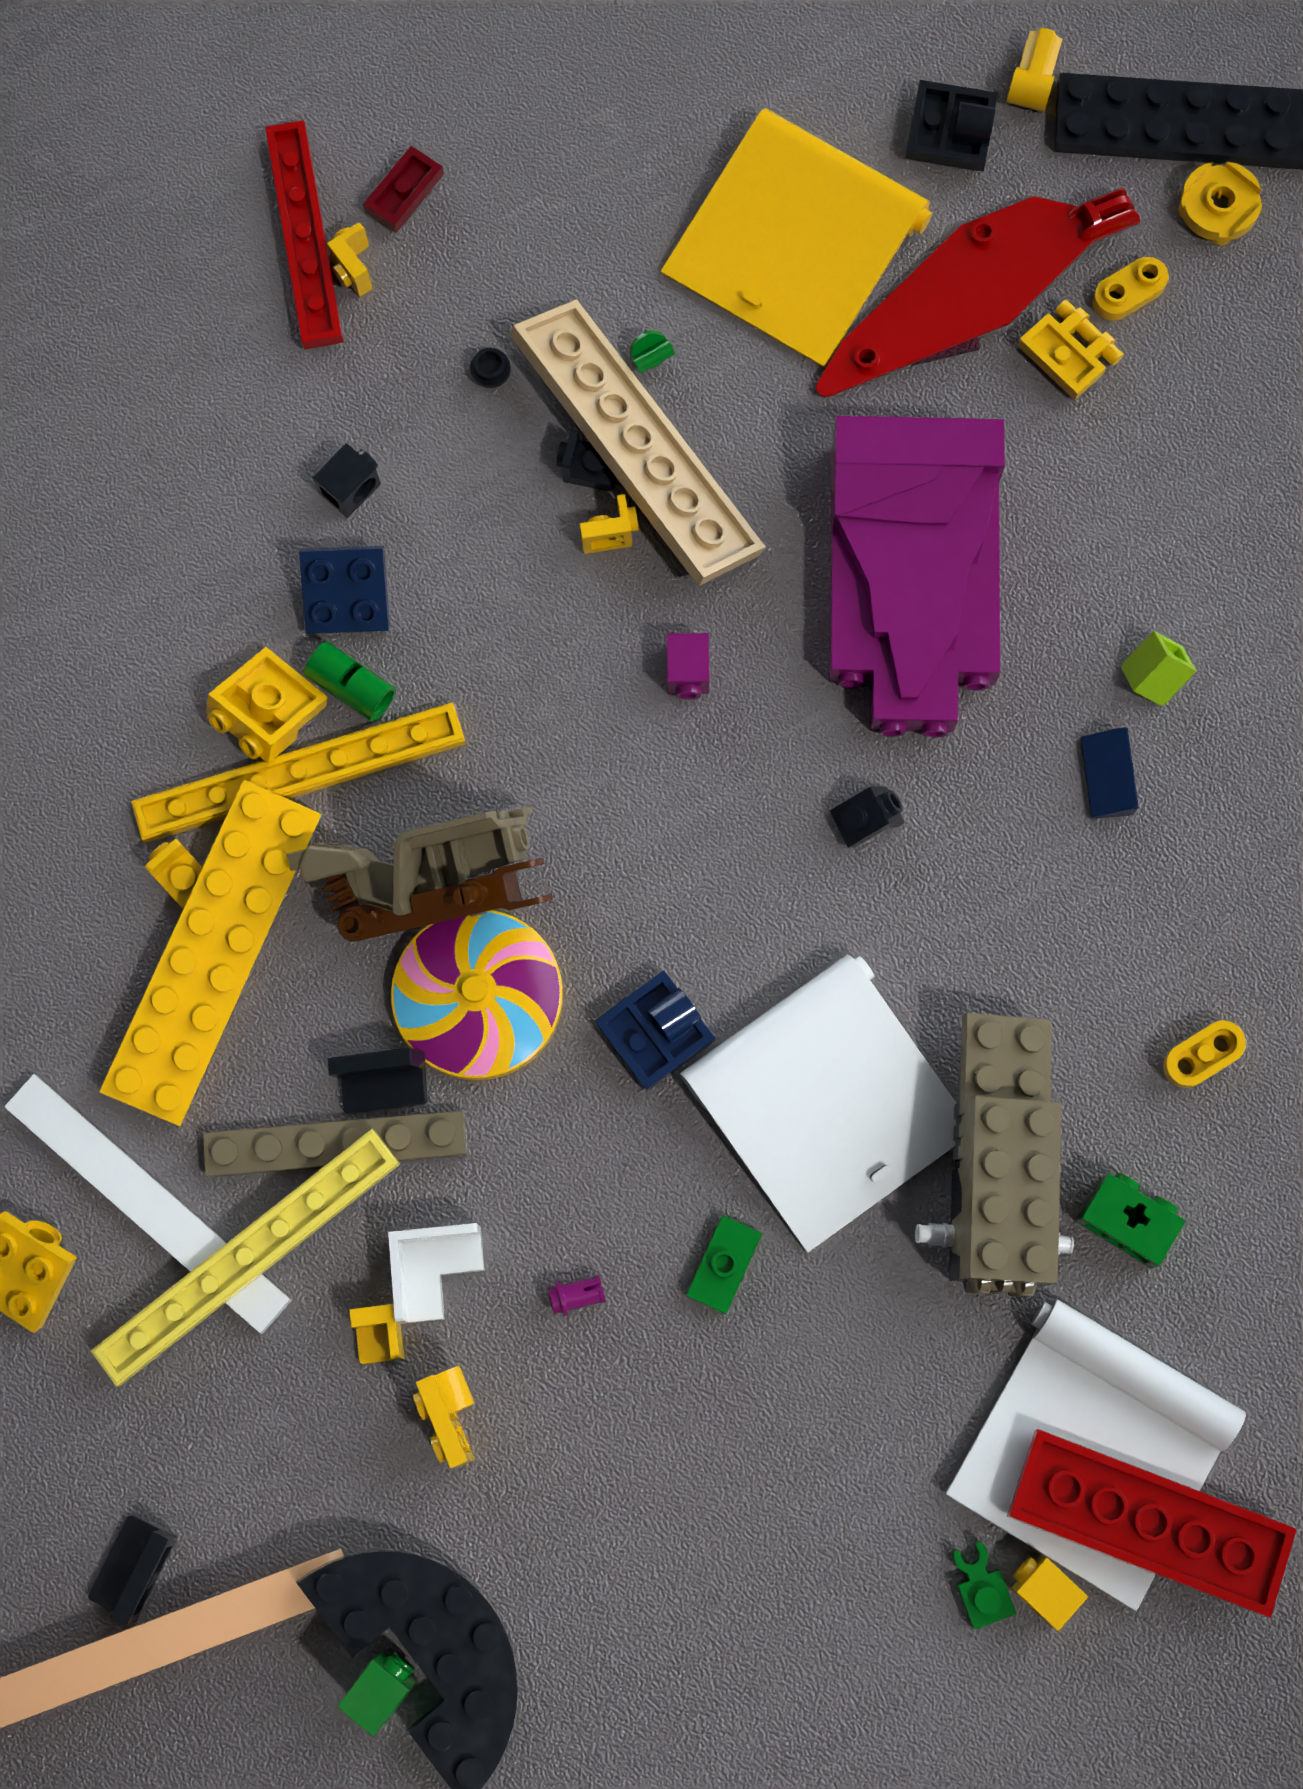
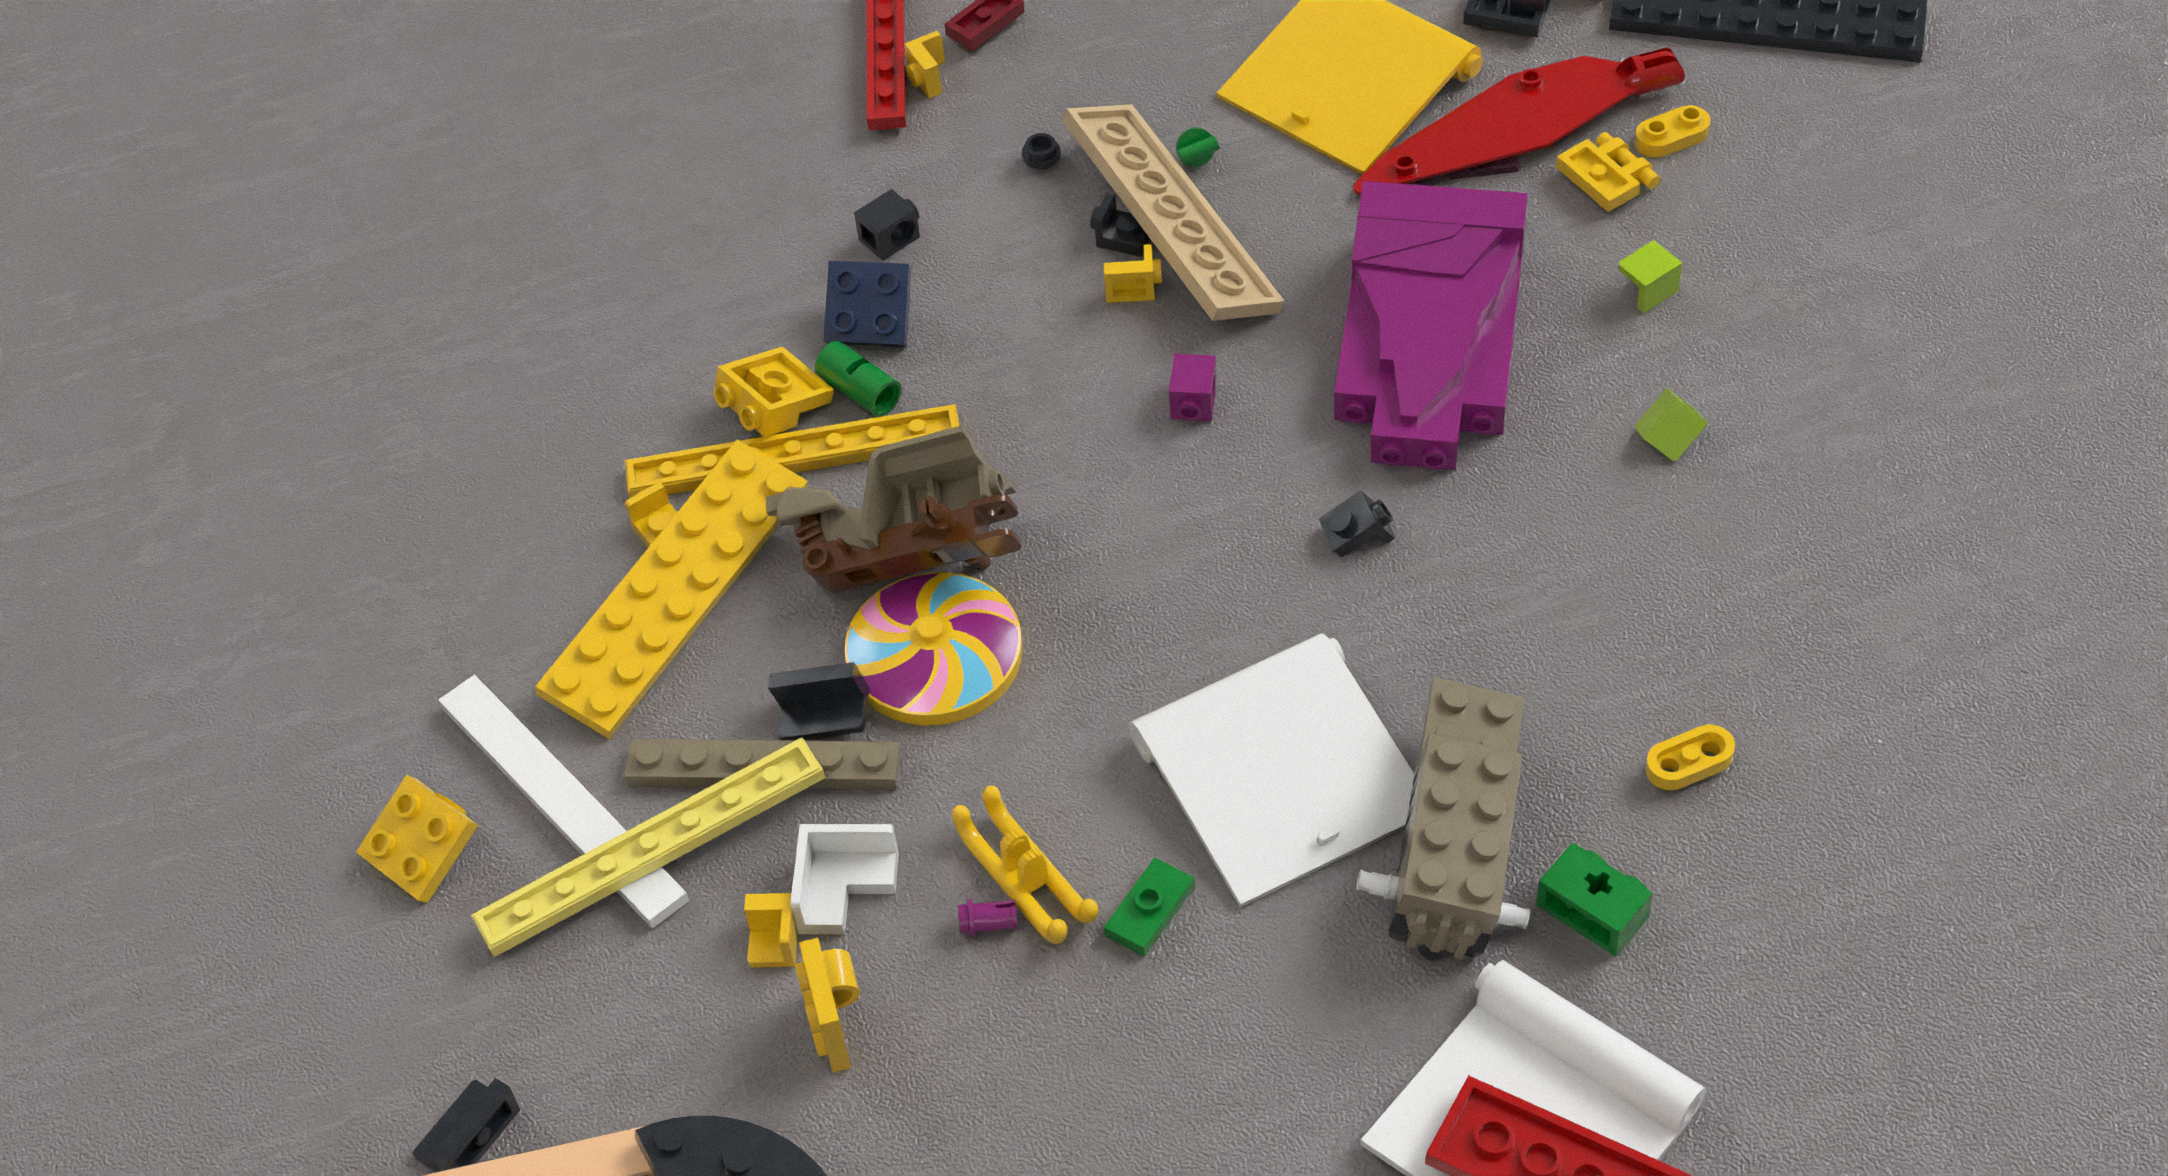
camera: 10 degrees right, 25 degrees down
(604, 1241) = (1022, 868): none -> yellow piece
(655, 1030) = (1110, 688): dark blue plate -> none
(1109, 773) = (1612, 510): dark blue slope -> none
(1126, 483) = (1654, 272): none -> lime panel
(1217, 223) = (1765, 86): yellow plate -> none

